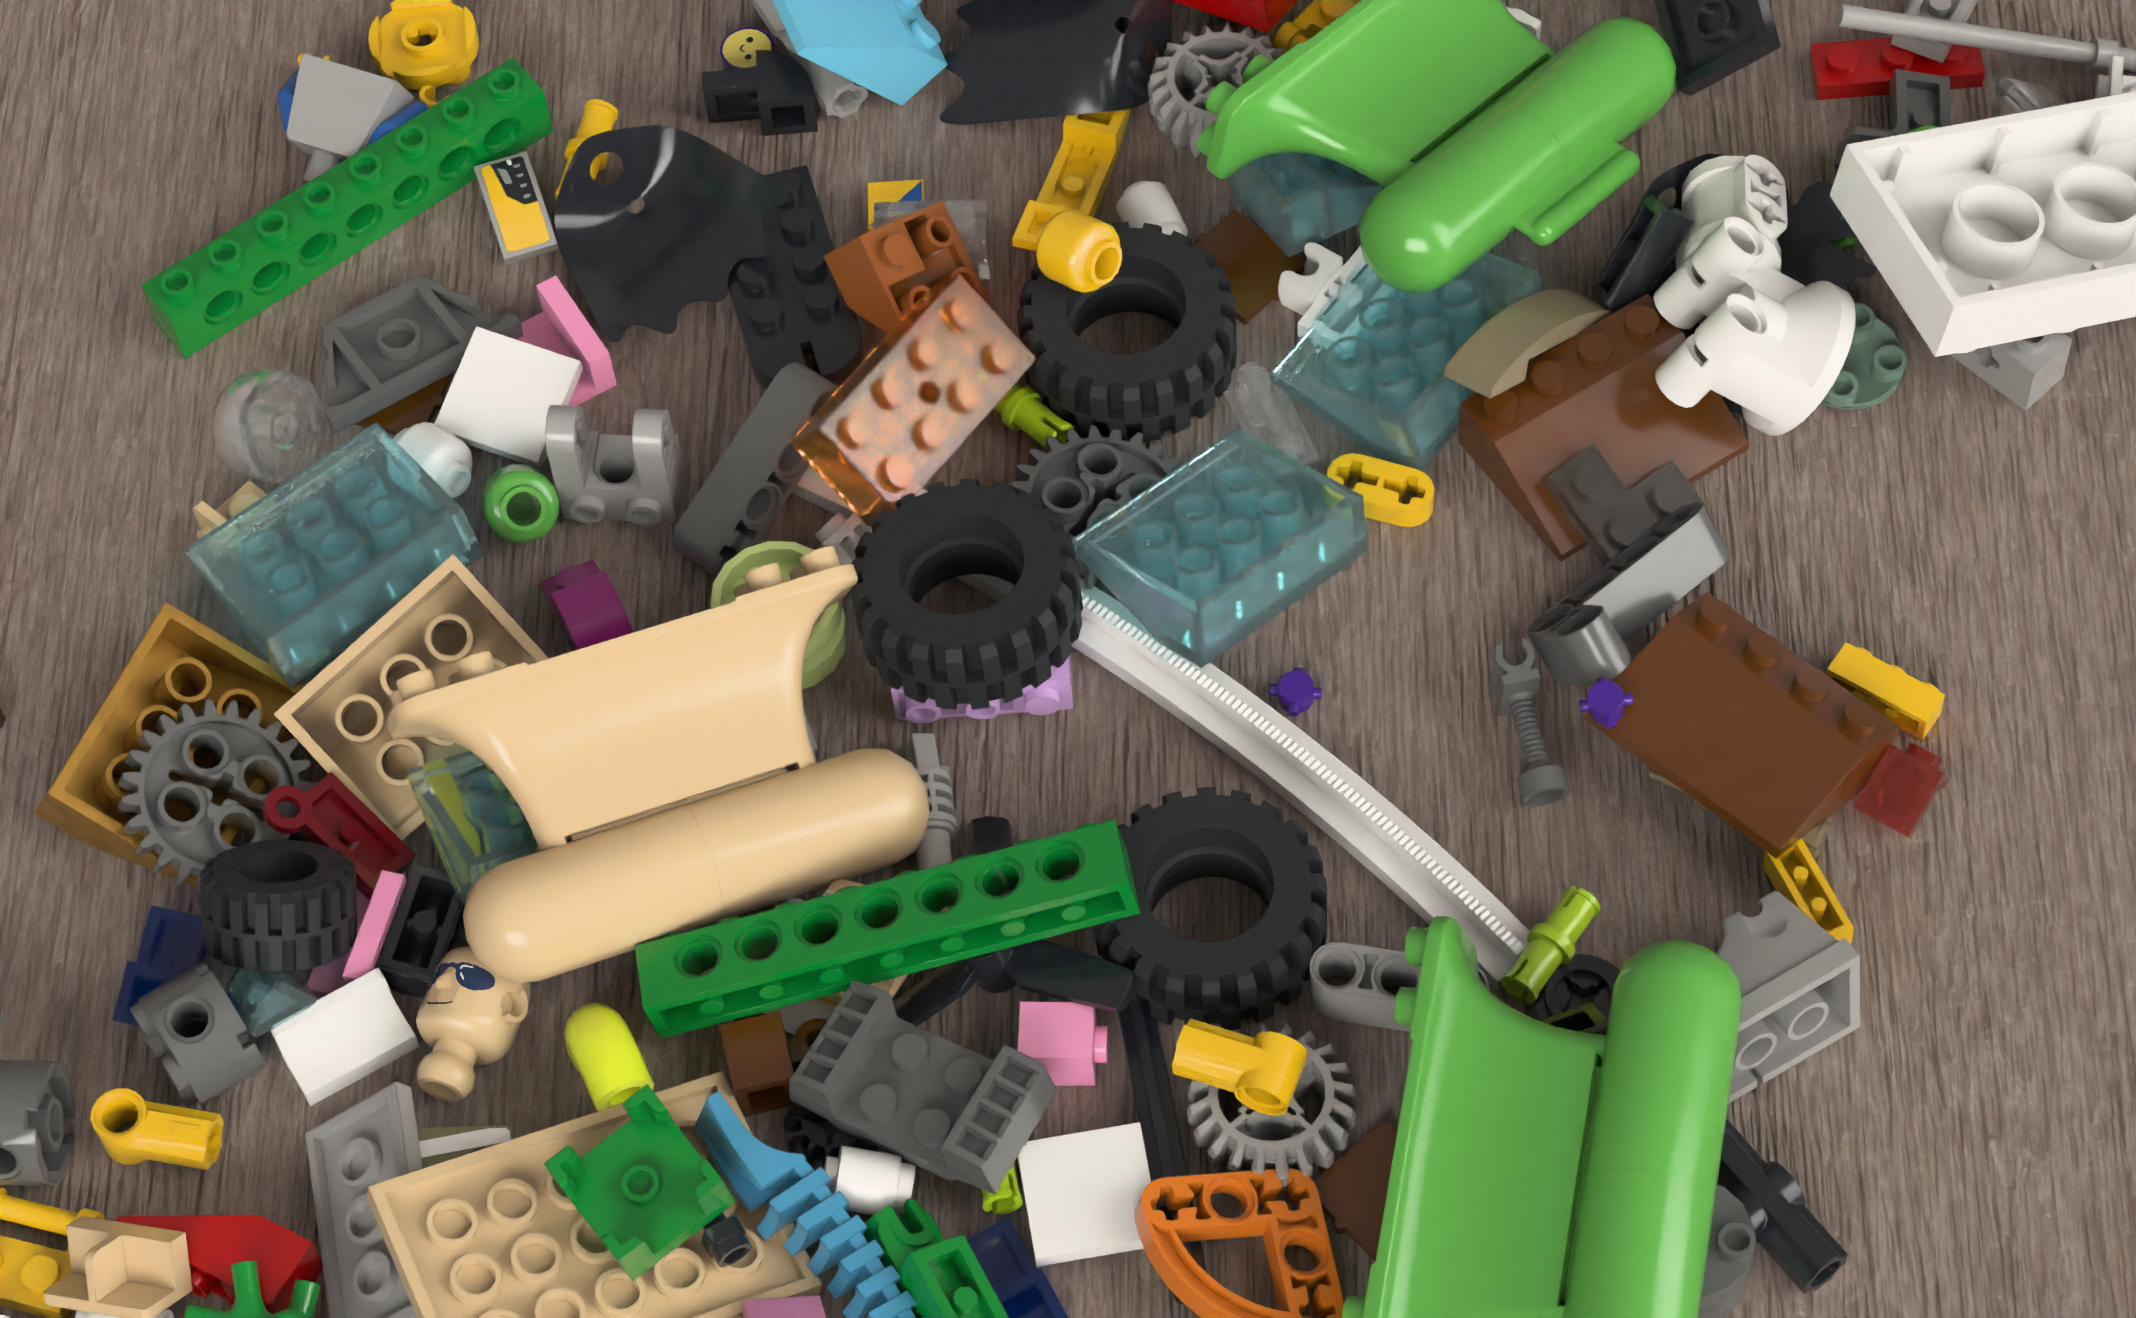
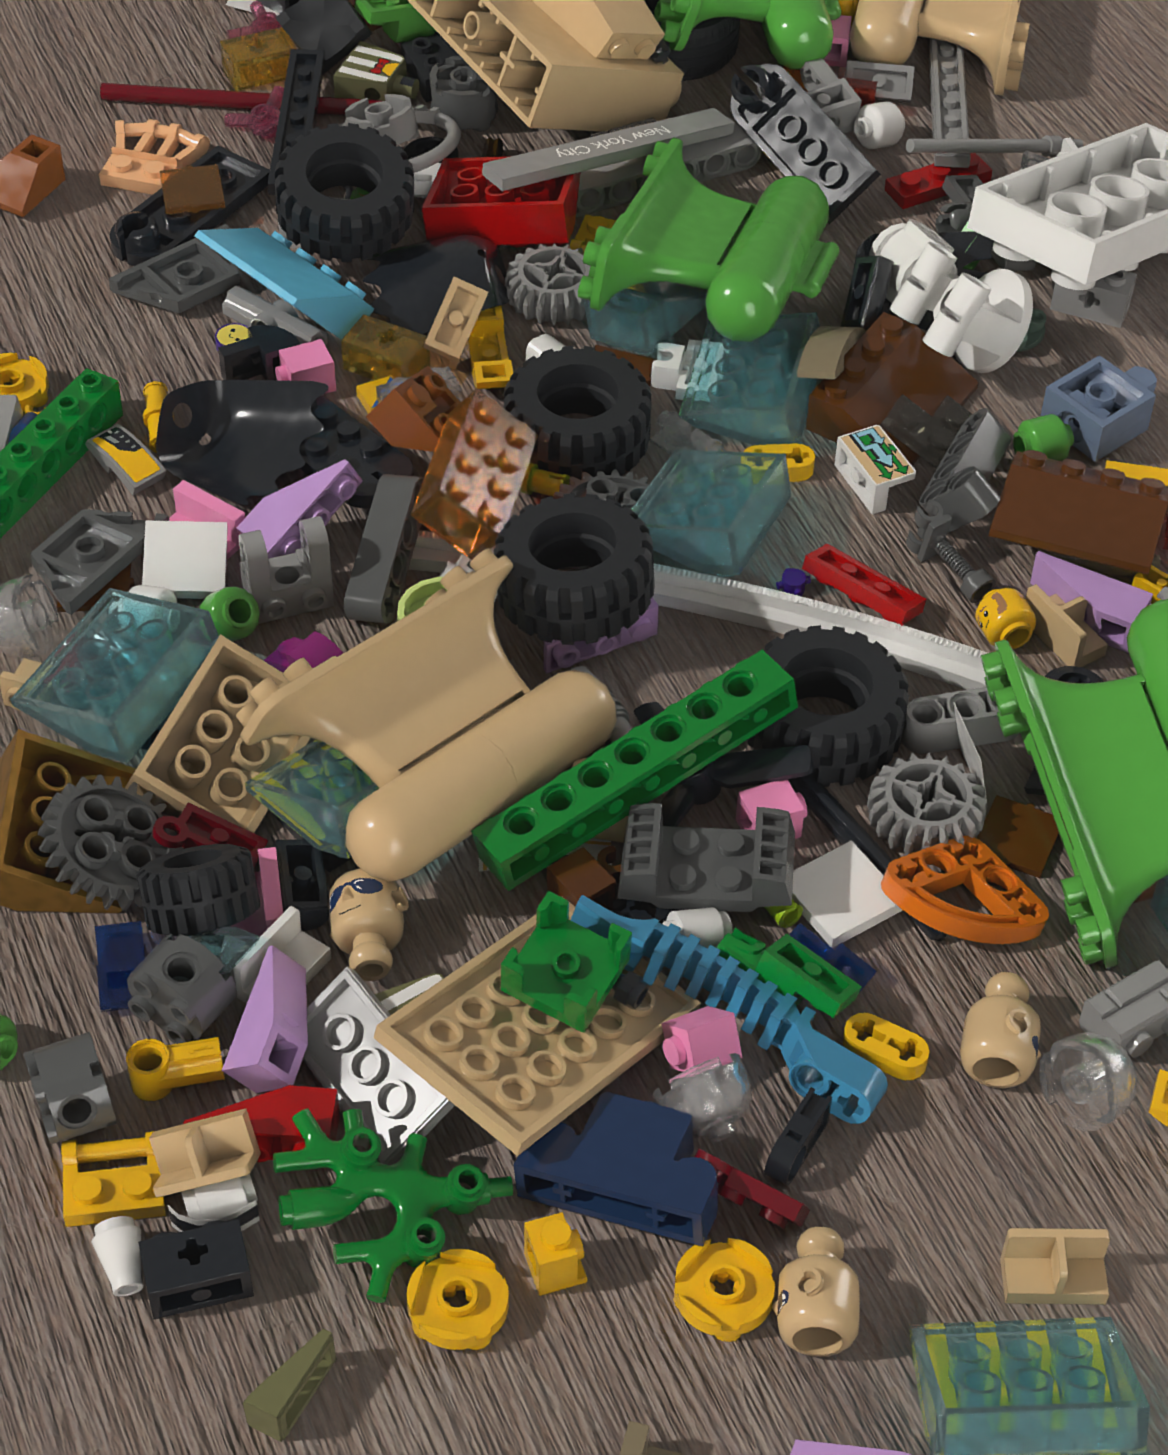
camera: 30 degrees left, 10 degrees down
(287, 1119) = (272, 1027): none -> lavender slope
(605, 1055) = (478, 903): neon yellow cylinder -> none
(676, 373) = (313, 496): none -> lavender slope
(811, 135) = (307, 363): none -> bright pink brick
(933, 139) = (383, 349): none -> clear yellow brick
(1032, 129) = (455, 320): none -> tan panel
(1078, 251) = (538, 364): yellow head -> none
(1256, 1069) = (919, 775): yellow piece -> none
(1362, 1053) = (969, 751): none -> white sticker
(1384, 730) = (864, 584): none -> red plate
(1503, 540) = (872, 465): none -> panel
(1548, 852) = (1006, 616): none -> yellow head
(1550, 944) = (1043, 655): lime pin -> none
(1606, 702) = (1002, 518): dark purple piece -> none
(1628, 892) = (1064, 628): none -> tan panel
(1691, 866) = (1110, 602): none -> lavender slope
(1774, 578) = (1046, 435): none -> bright green head
(1887, 523) = (1102, 405): none -> sand blue brick

